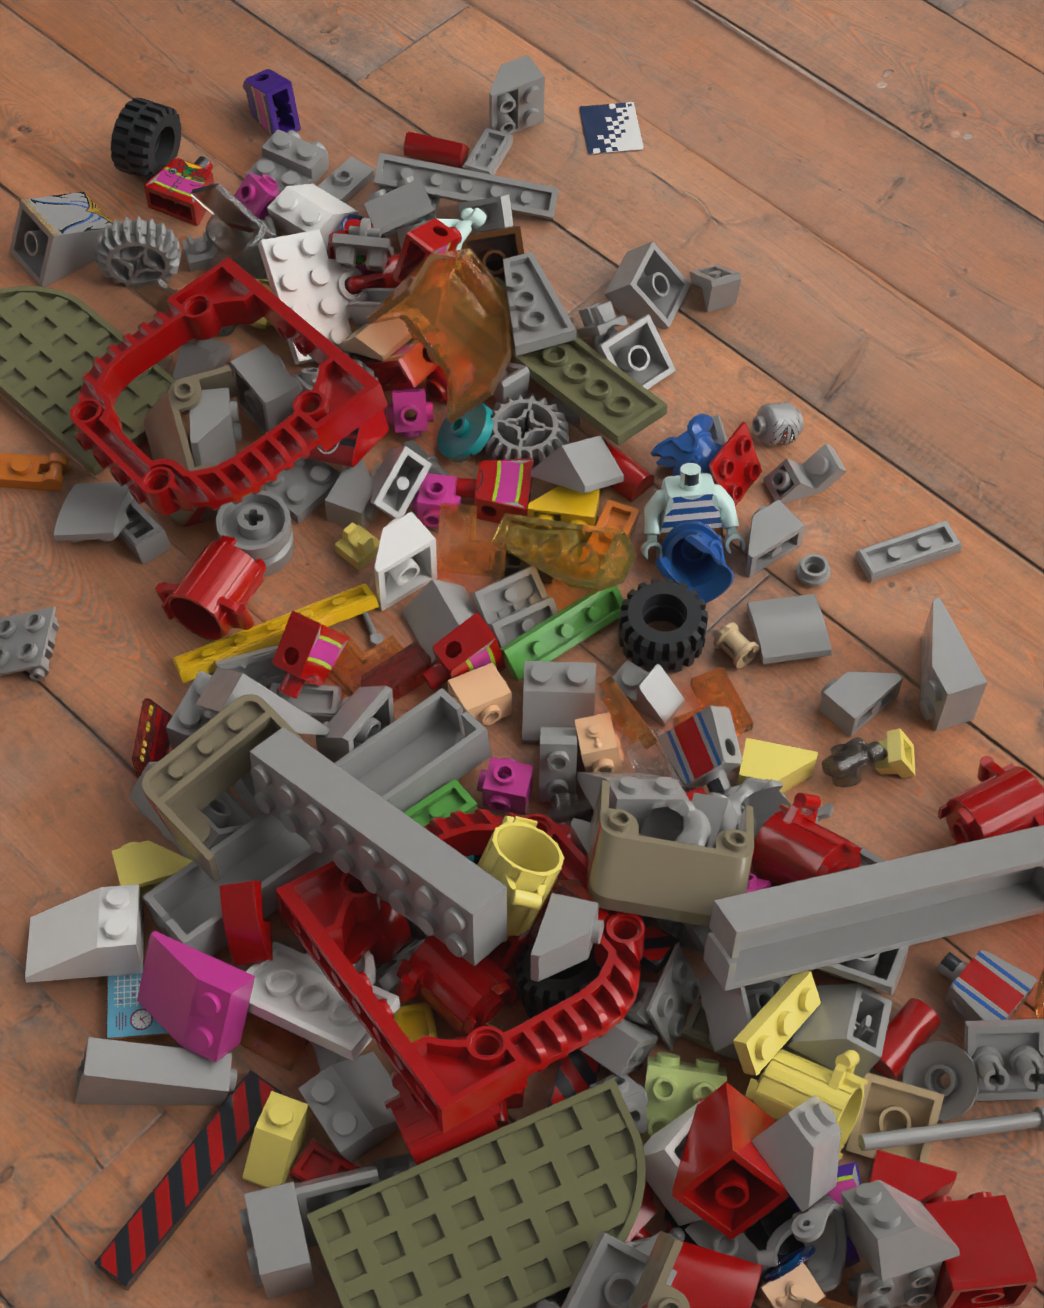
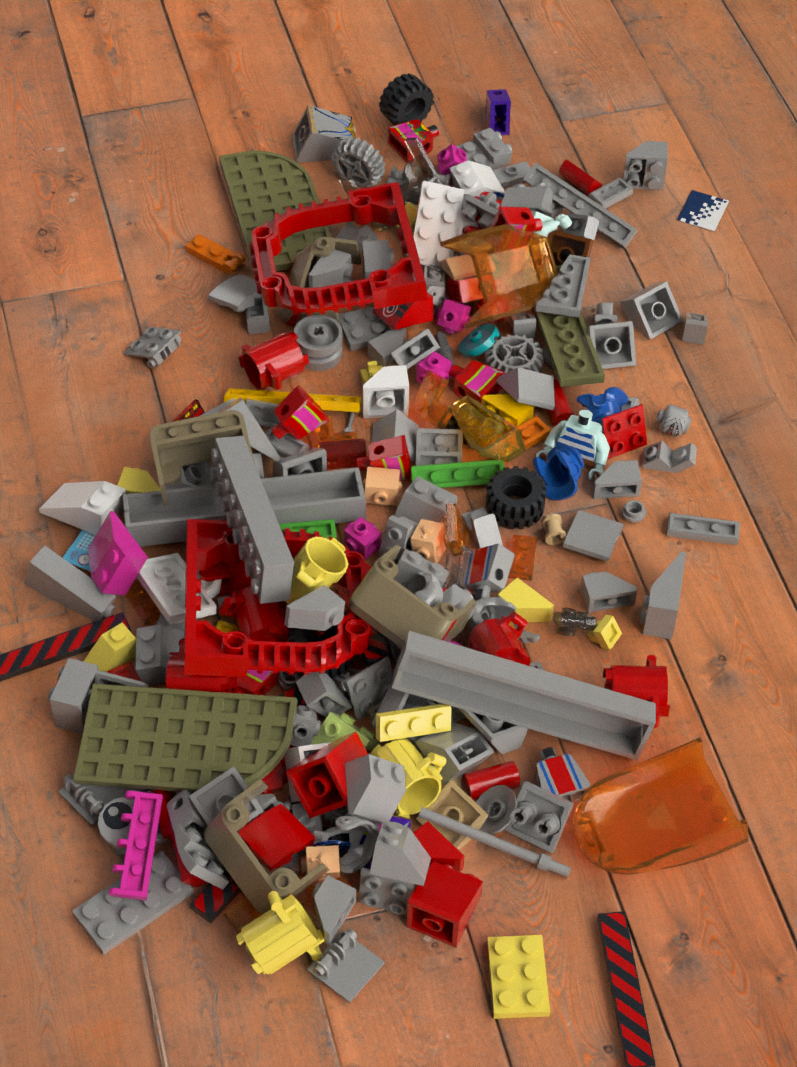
camera: 30 degrees right, 5 degrees down
(243, 922) = (161, 535): red slope -> none

